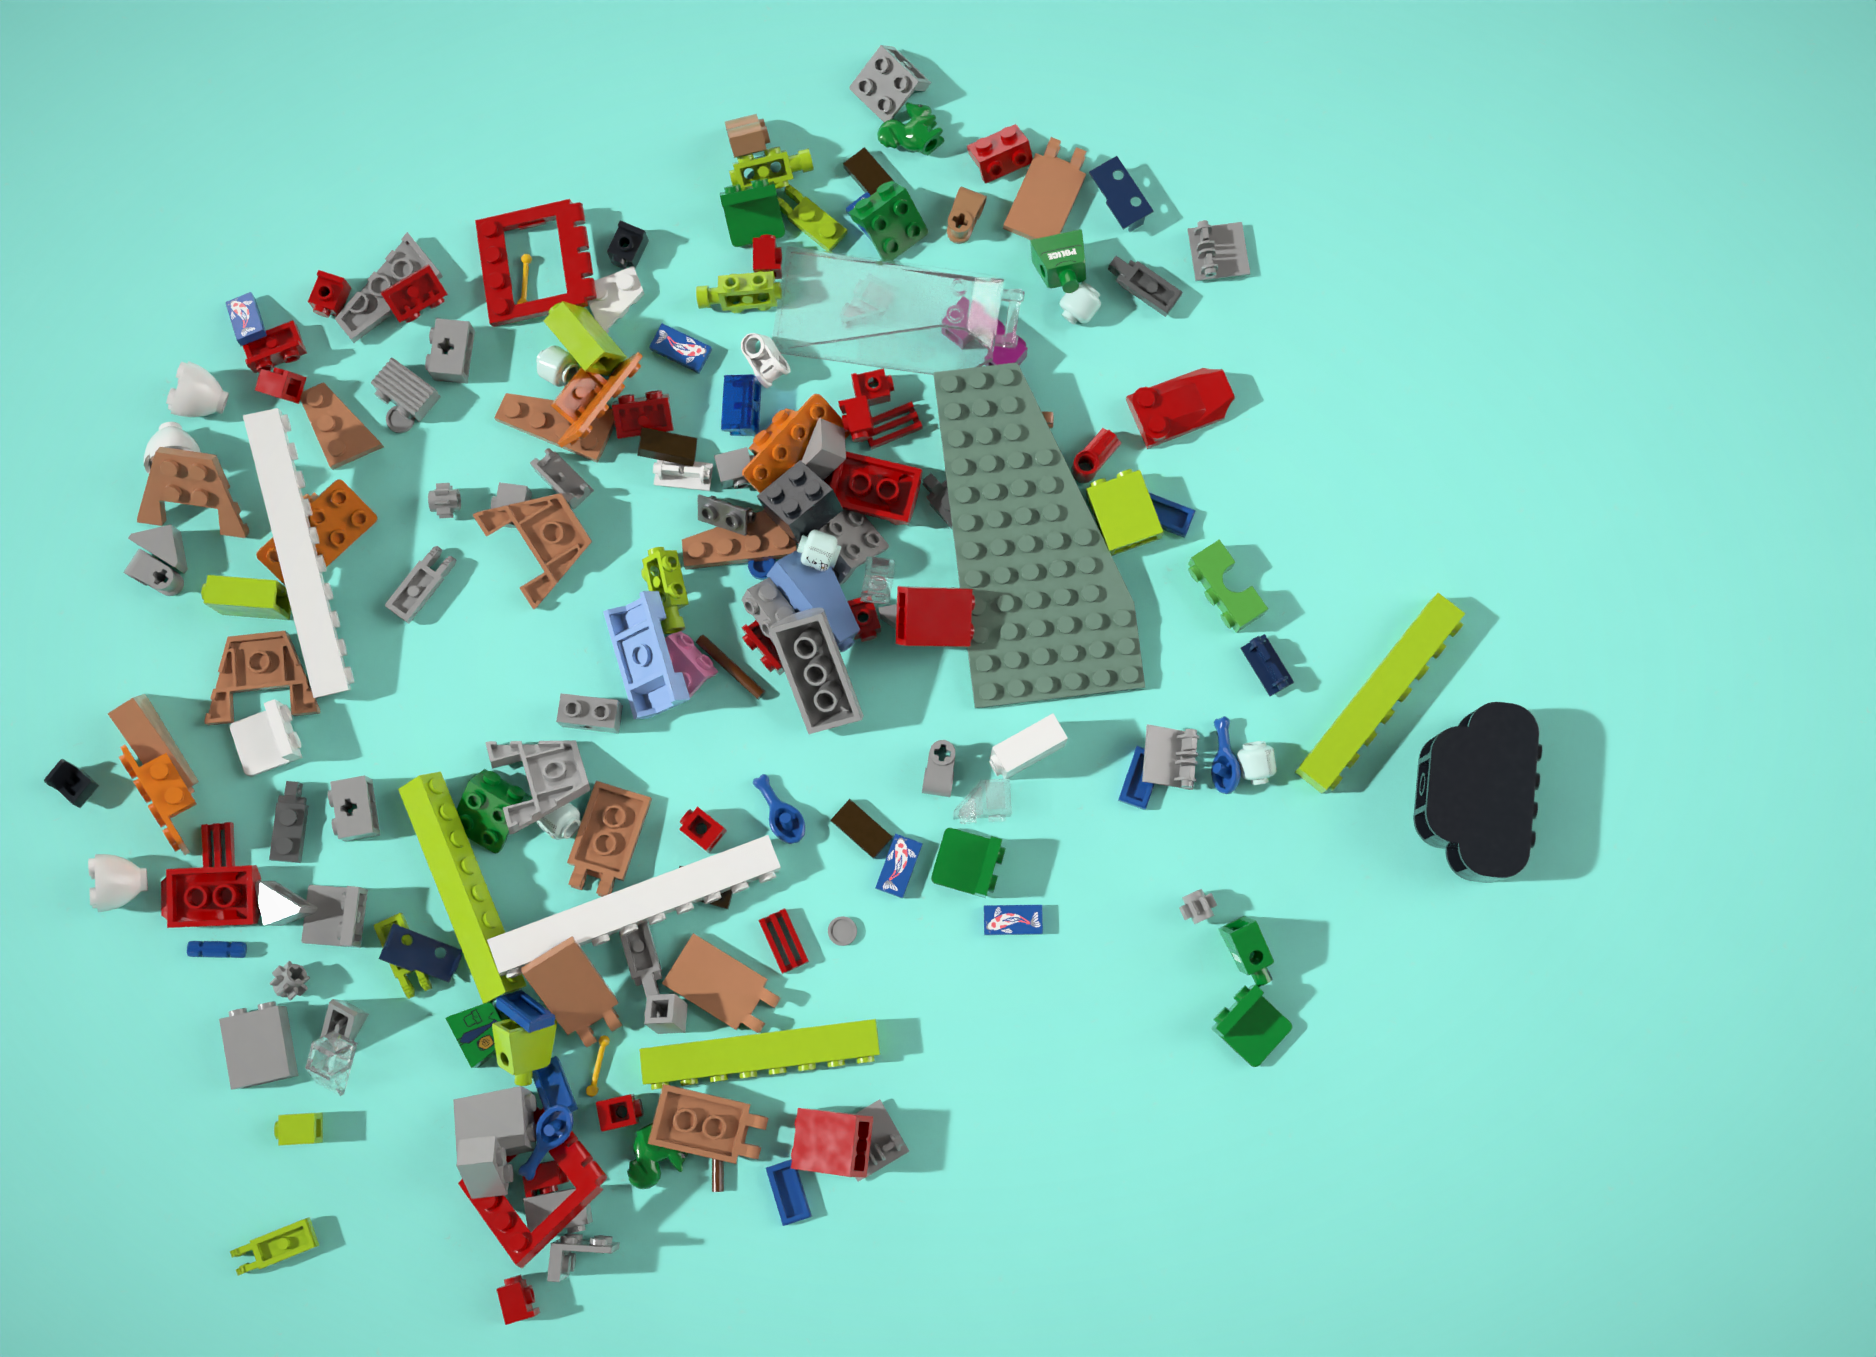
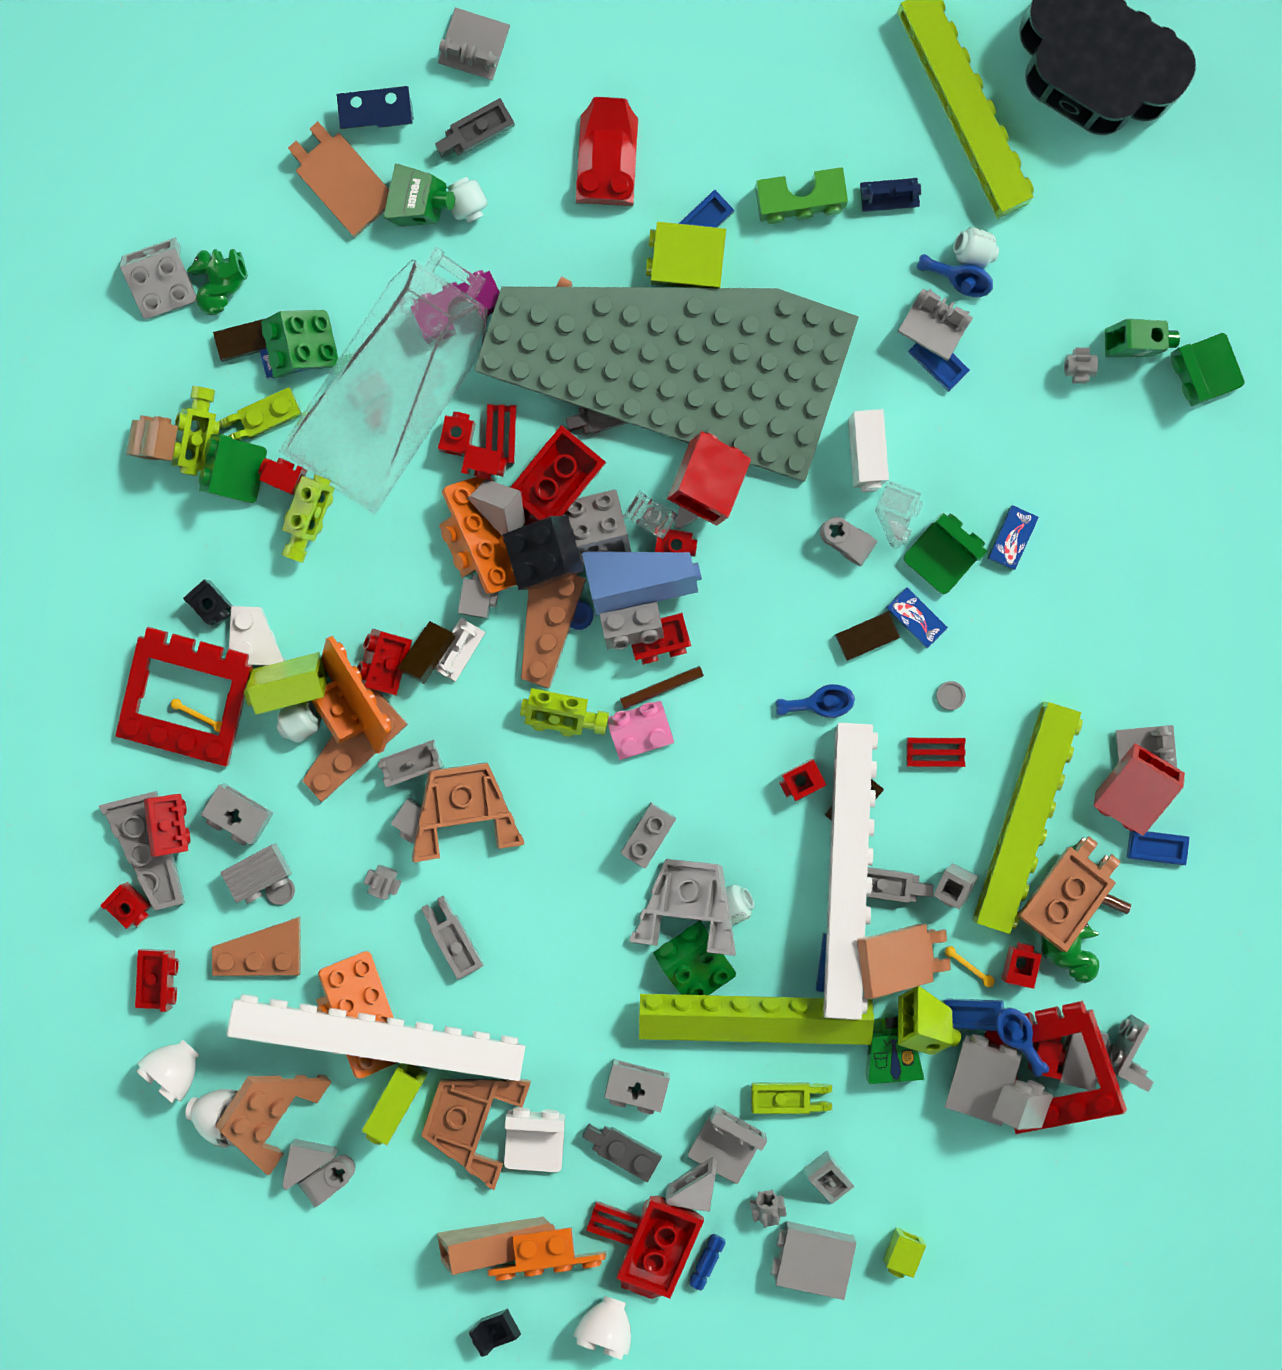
camera: 60 degrees left, 10 degrees up
(246, 319) = (115, 994): tile -> none
(278, 1245) = (997, 1314): lime hinge -> none
(281, 384) = (198, 987): red brick -> none
(331, 1061) = (859, 1199): clear slope -> none
(420, 954) = (799, 1081): dark blue piece -> none
(516, 1300) = (1143, 1125): red brick -> none
(525, 1011) = (898, 1010): blue tile -> none
(607, 836) = (767, 868): nougat tile -> none
(645, 657) = (619, 761): light blue piece -> none
(680, 348) = (333, 597): tile -> none
(719, 984) = (948, 826): nougat tile -> none
(724, 514) = (514, 632): flat silver hinge -> none
(741, 405) = (417, 565): clear blue hinge -> none
(768, 362) = (385, 522): white piece -> none
(815, 670) = (709, 610): light grey brick -> none
(819, 550) = (599, 555): light aqua head -> none
(965, 212) = (324, 265): medium nougat piece -> none
(1001, 153) = (279, 203): red bracket -> none
(1095, 455) = (619, 256): red piece -> none

